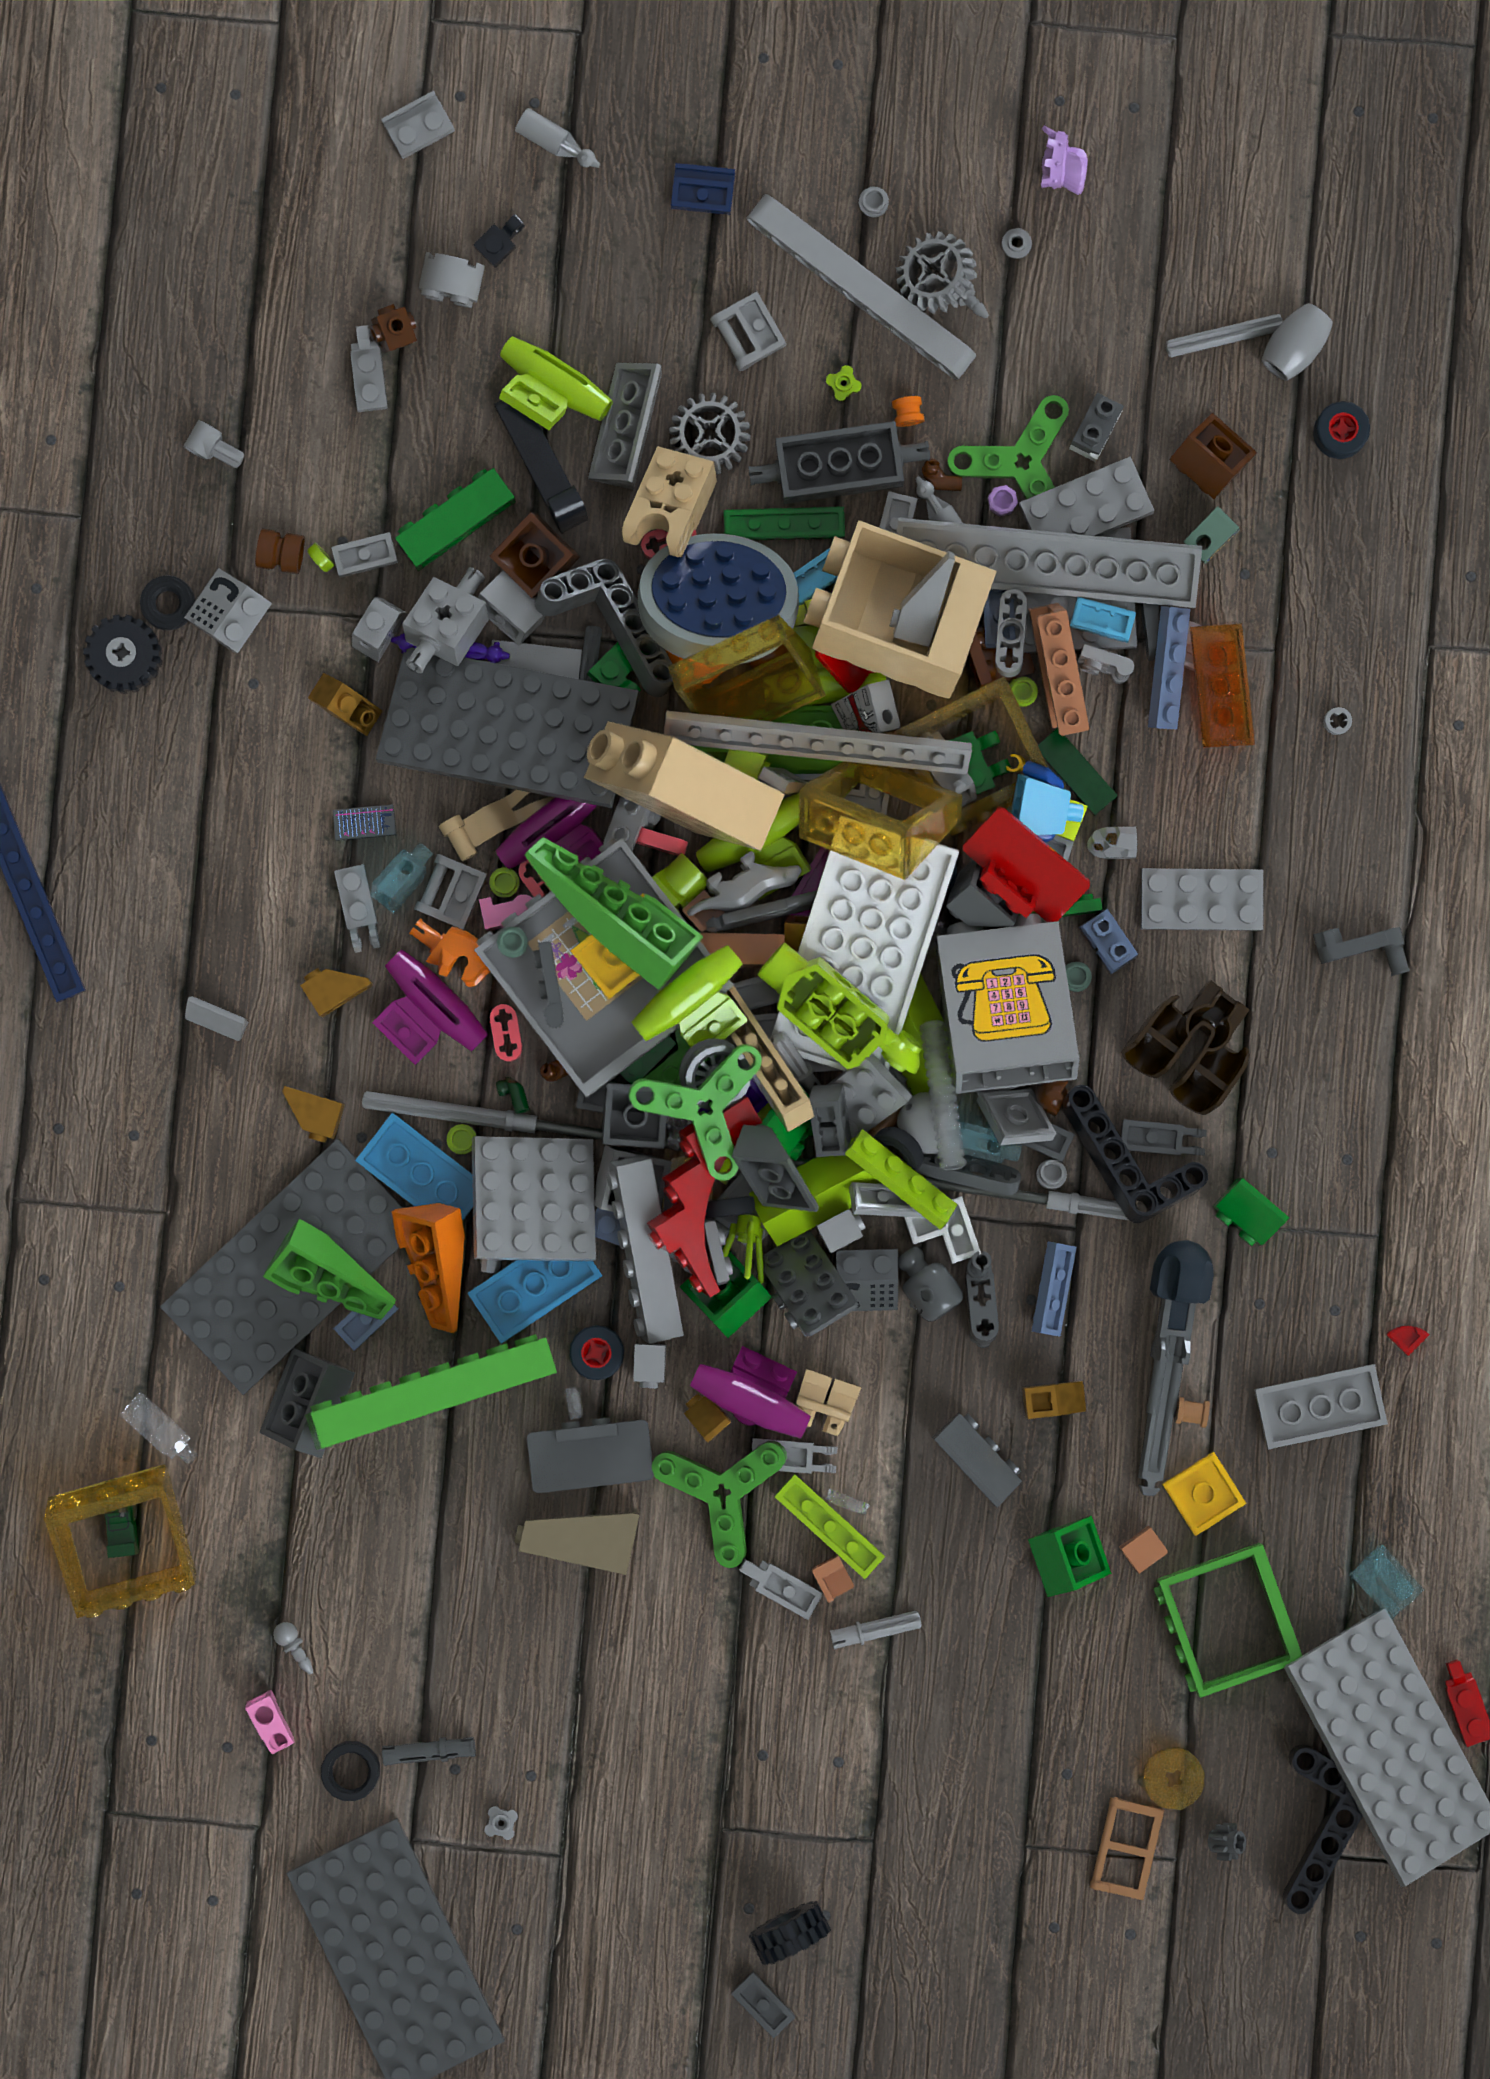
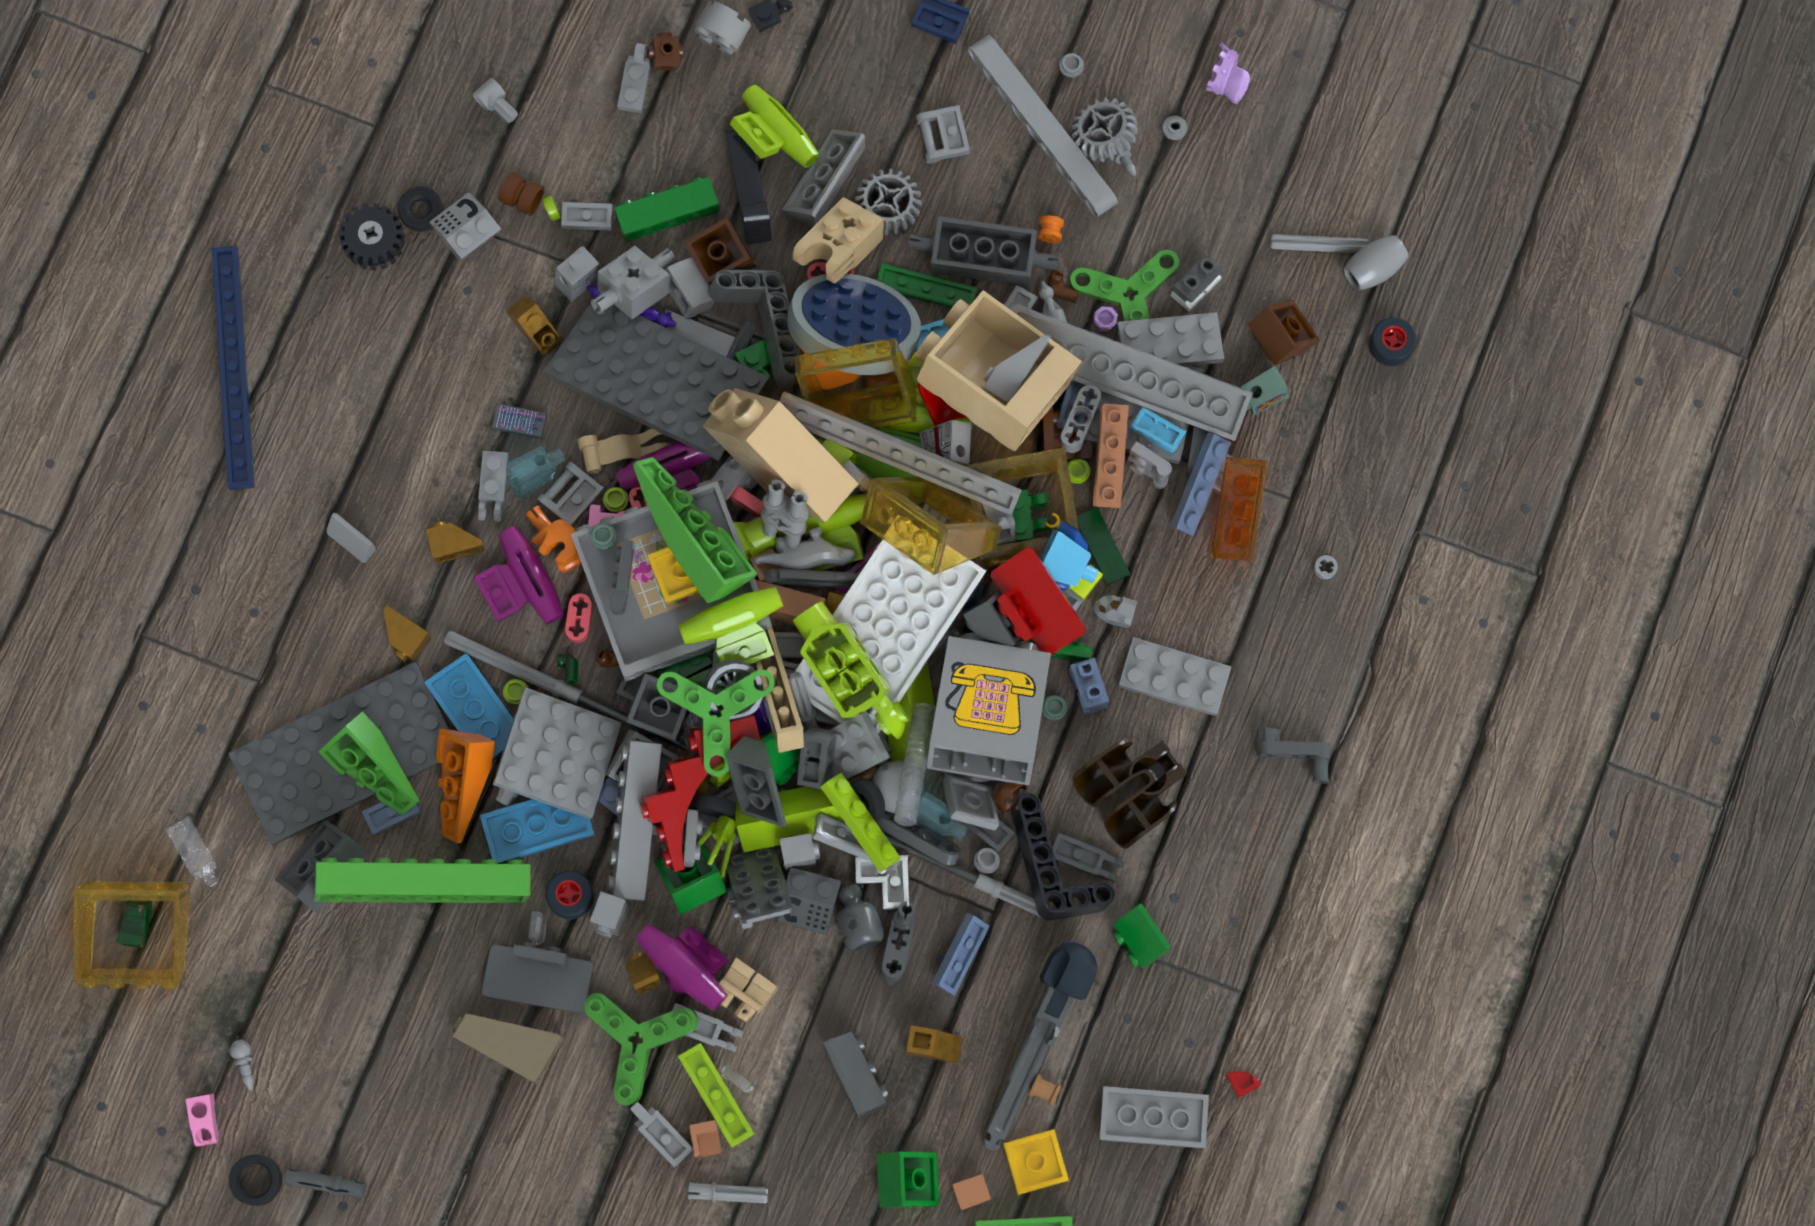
camera: 15 degrees right, 10 degrees down
(711, 854) = (784, 513): none -> light grey pin
(840, 391) = (1001, 199): lime plate -> none

